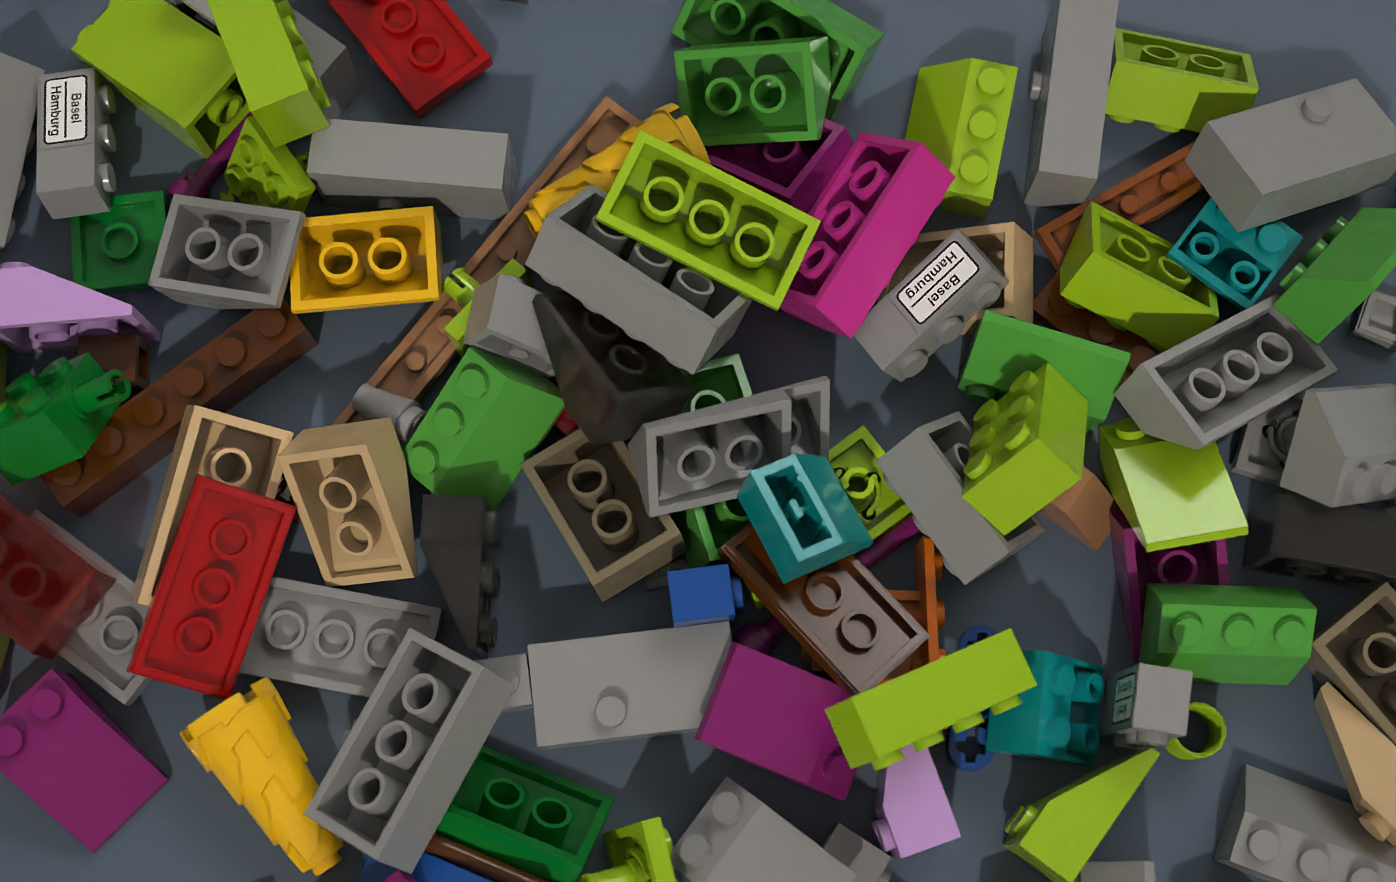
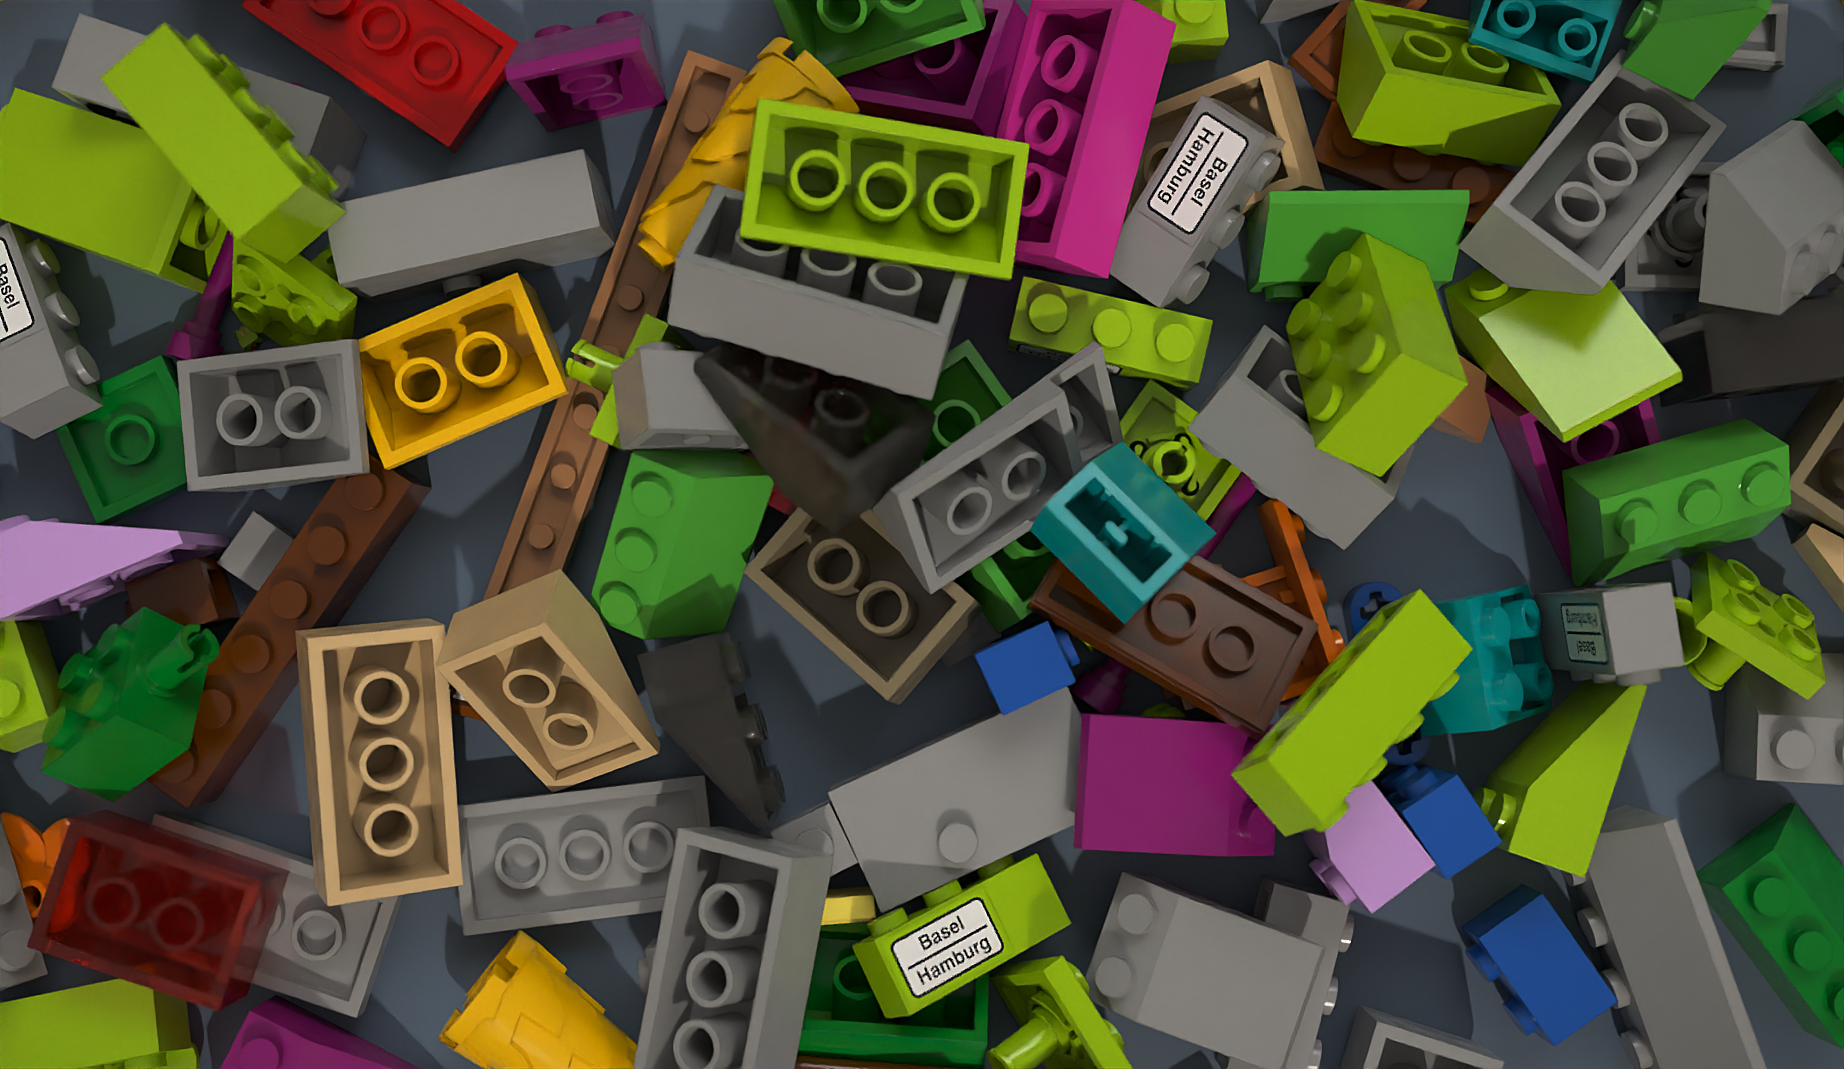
camera: 20 degrees left, 10 degrees up
(176, 345) = (256, 550): none -> light grey tile
(211, 588) = (412, 852): red tile -> none
(377, 404) = (551, 550): light grey cone -> none
(512, 739) = (849, 905): none -> light yellow tile
(531, 90) = (588, 71): none -> magenta slope
(590, 780) = (959, 933): none -> lime brick
(857, 389) = (1135, 337): none -> lime brick
(978, 810) = (1440, 816): none -> blue brick
(1260, 747) = (1752, 627): none -> lime plate

